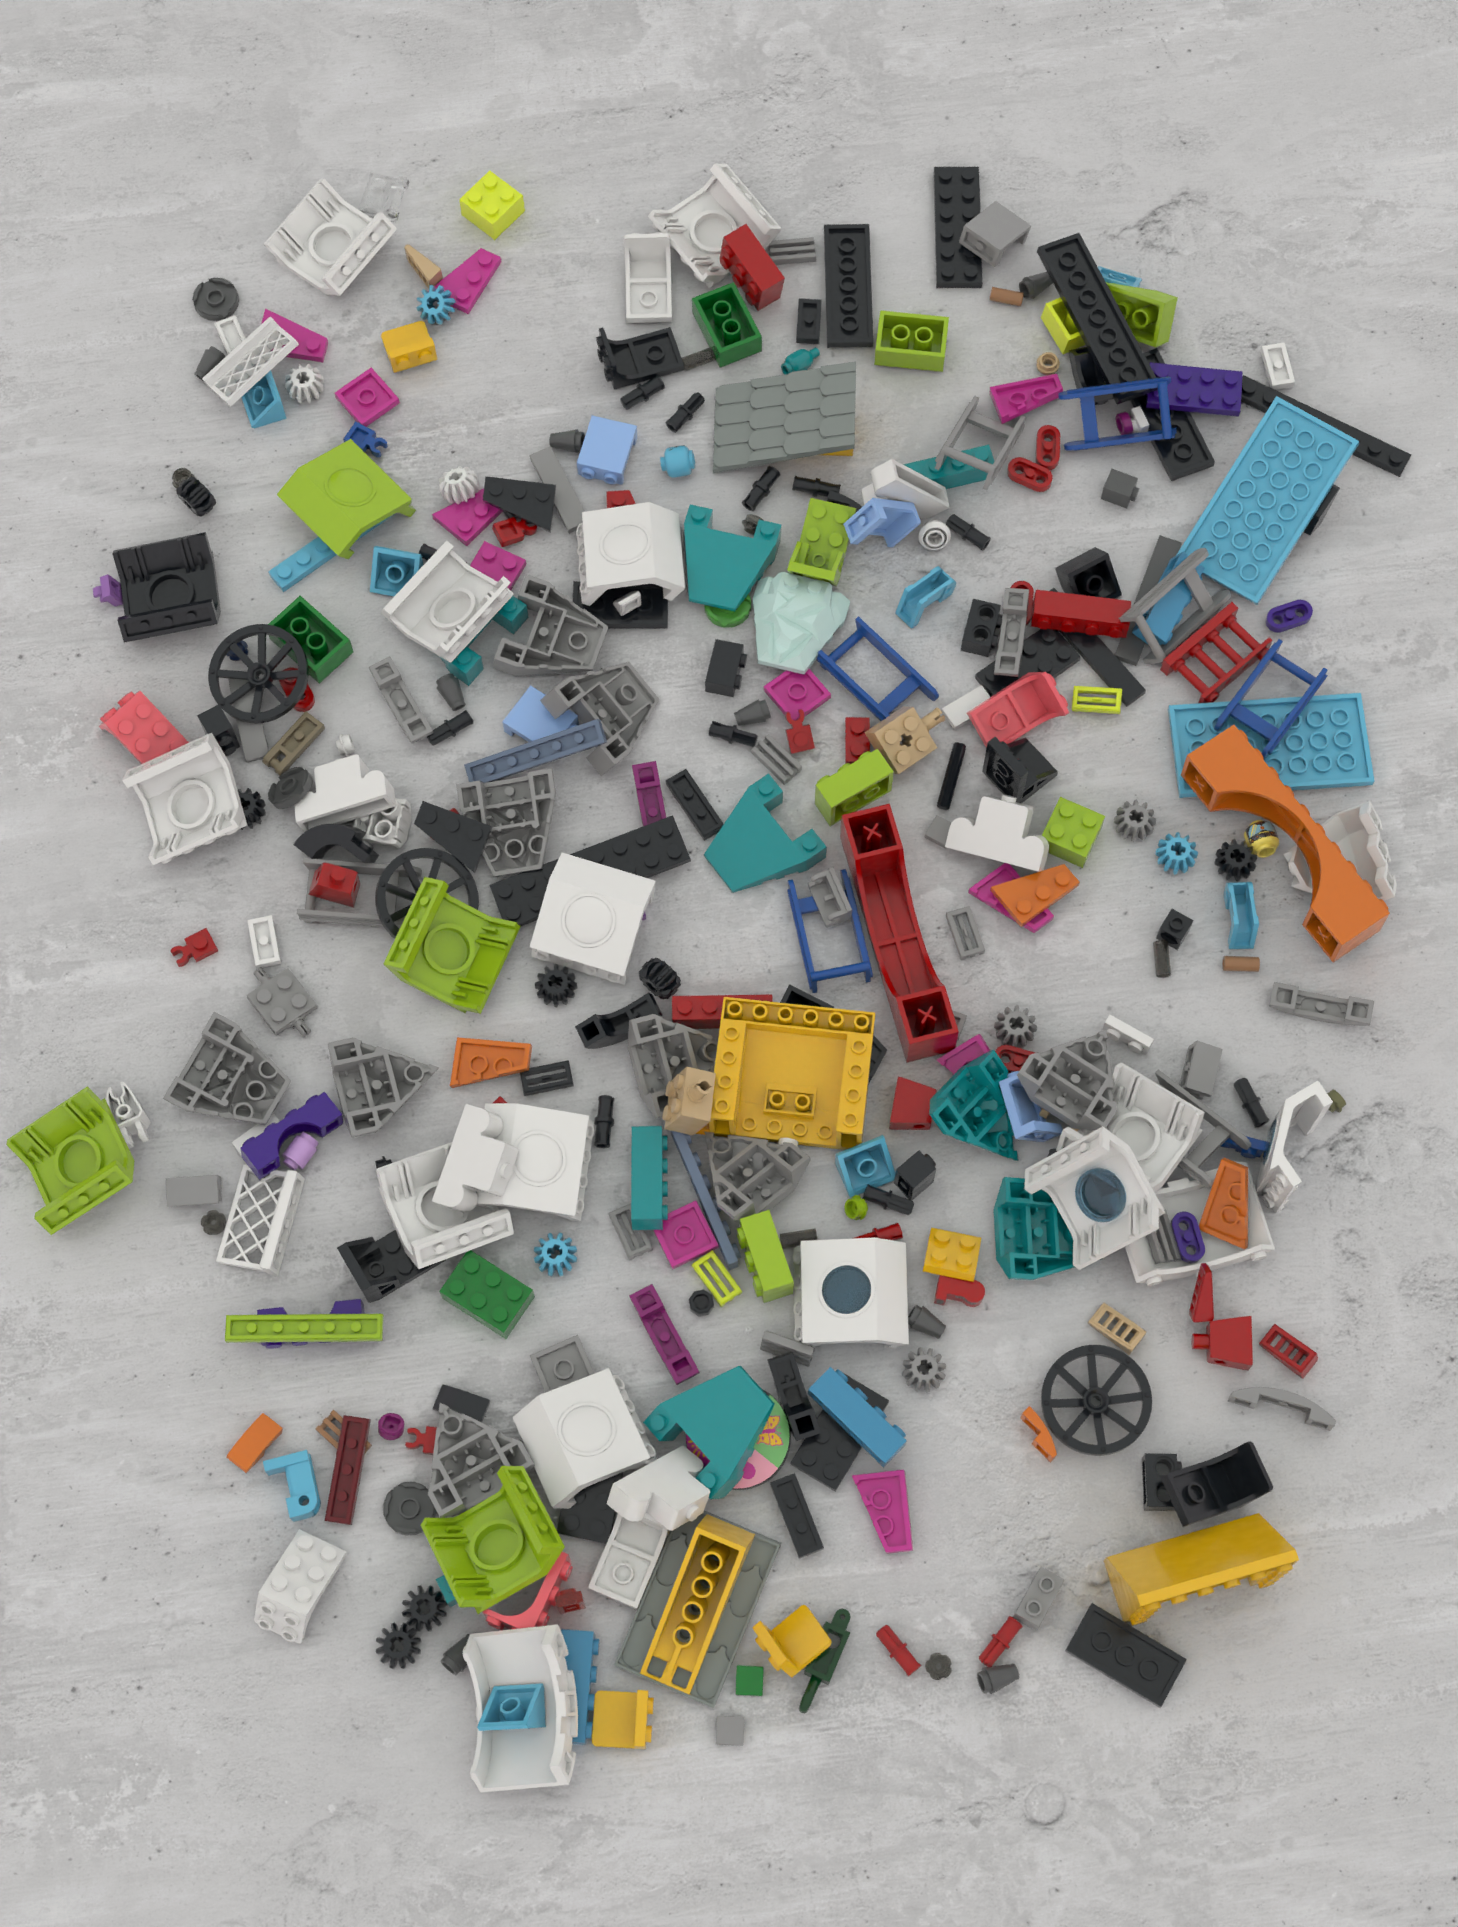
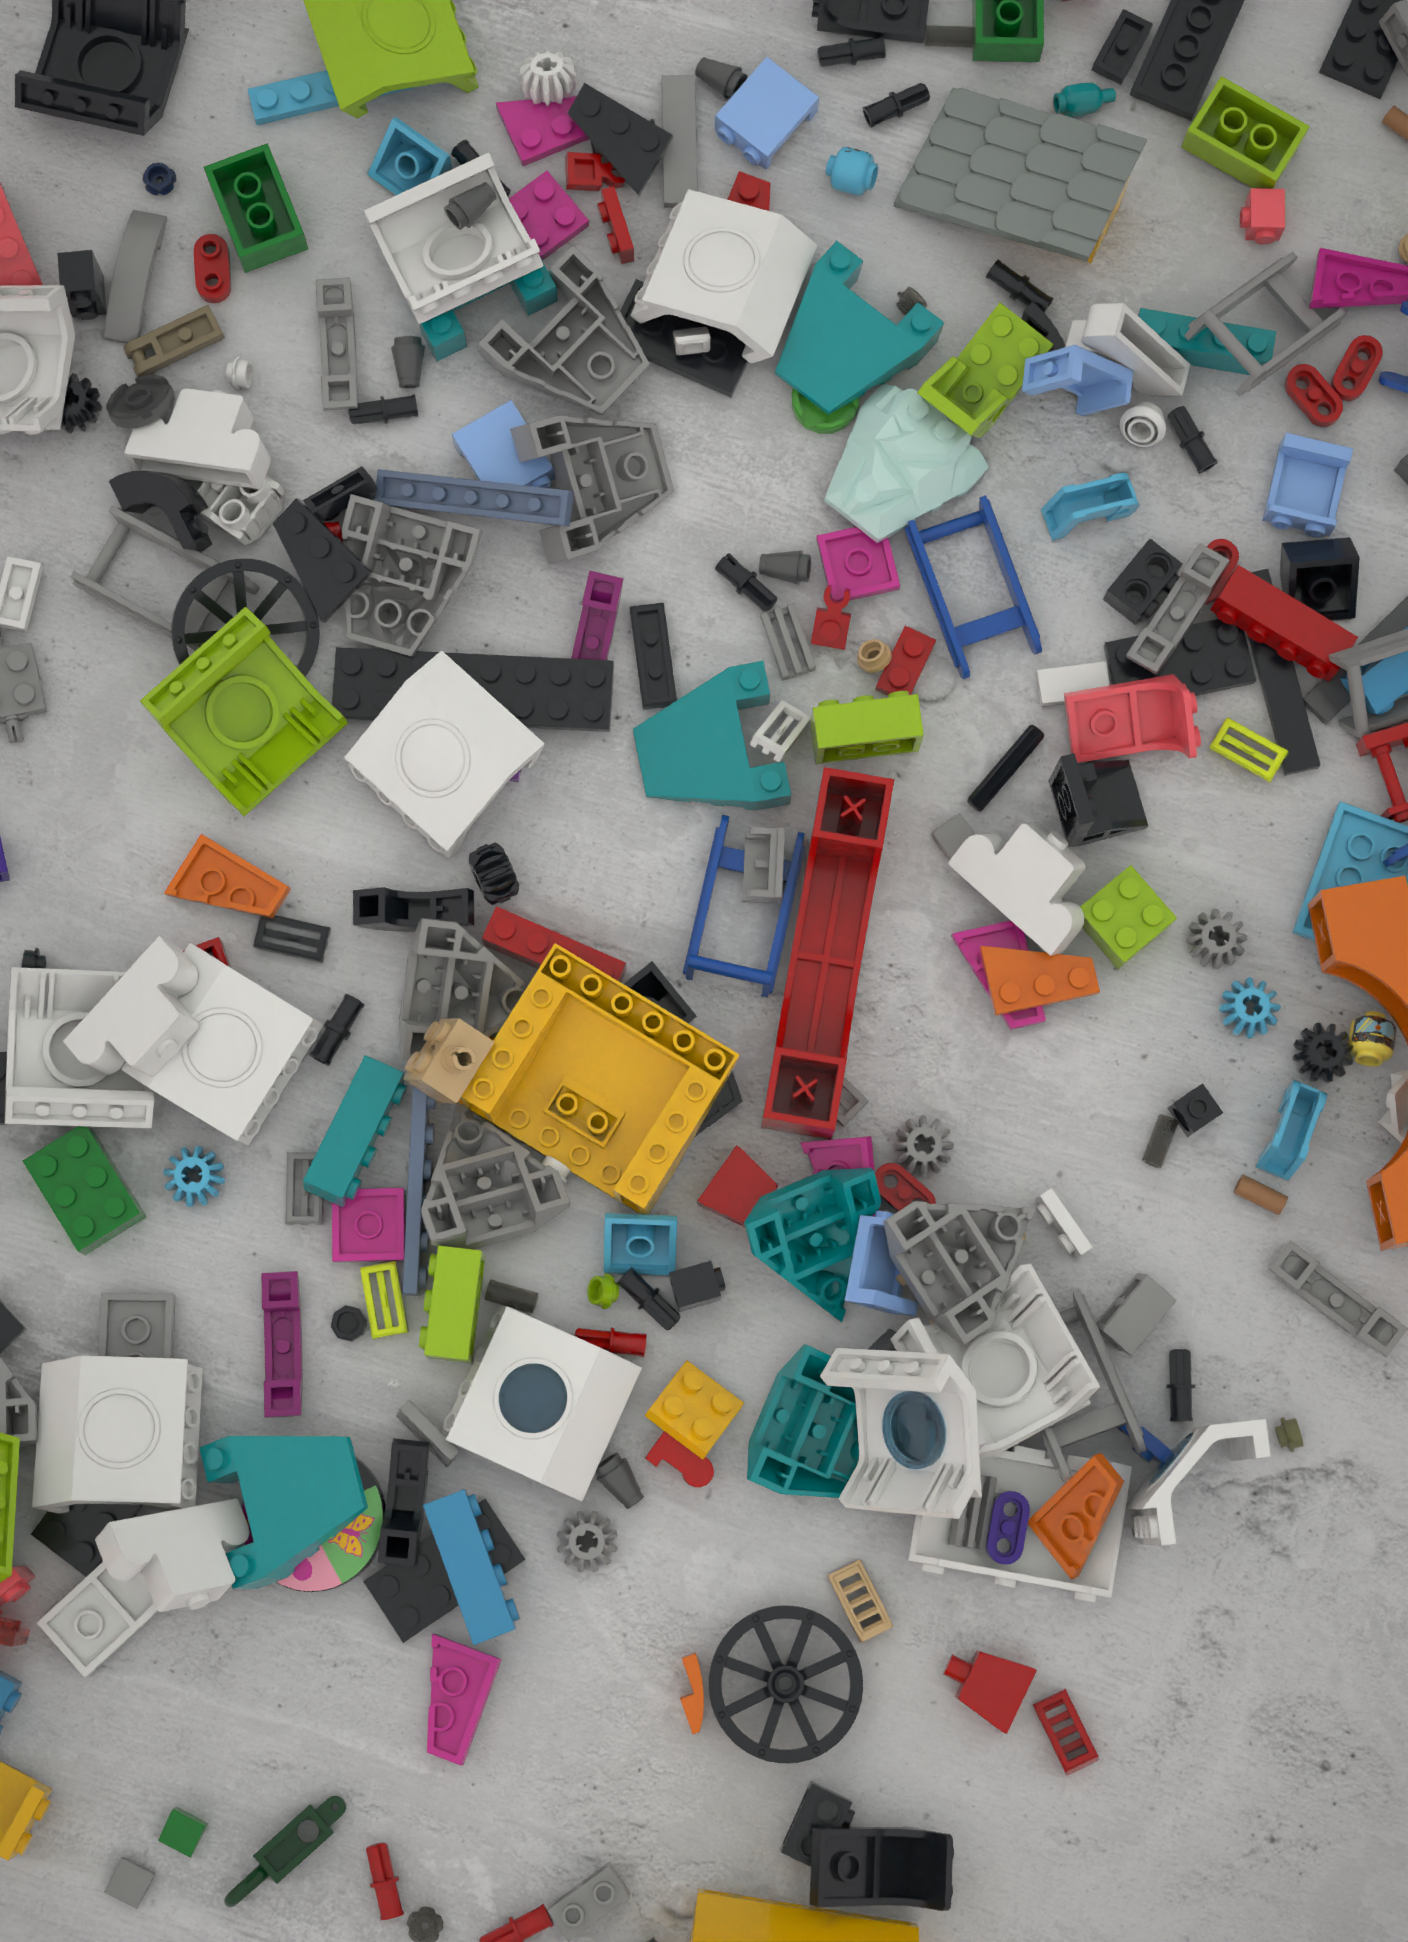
camera: 20 degrees right, 10 degrees up
(109, 591) = (31, 25): medium lavender tile -> none
(257, 669) = (160, 226): black wheel -> none
(335, 884) = (139, 560): red torso -> none
(373, 1083) = (66, 849): light grey wedge -> none
(447, 789) = (335, 497): none -> black plate
(448, 579) = (469, 205): none -> dark grey cone
(549, 559) = (619, 238): none -> red plate
(550, 992) = (347, 829): black gear -> none
(698, 1606) = (163, 1710): piece -> none
(725, 668) = (779, 487): black brick -> none
(761, 488) = (945, 257): black pin -> none
(793, 1641) = (255, 1811): yellow bracket -> none
(796, 1515) = (338, 1653): black plate -> none
(798, 820) = (771, 744): none -> white tile
(835, 743) = (874, 656): none -> tan plate
(915, 735) = (978, 703): tan brick -> none
(945, 382) = (1263, 215): none -> coral brick
(970, 951) = (916, 1018): light grey tile -> none
(1052, 528) = (1306, 485): none -> light blue panel
(1202, 1301) = (983, 1620): red slope -> none
(1315, 1414) = (1055, 1830): light grey slope -> none

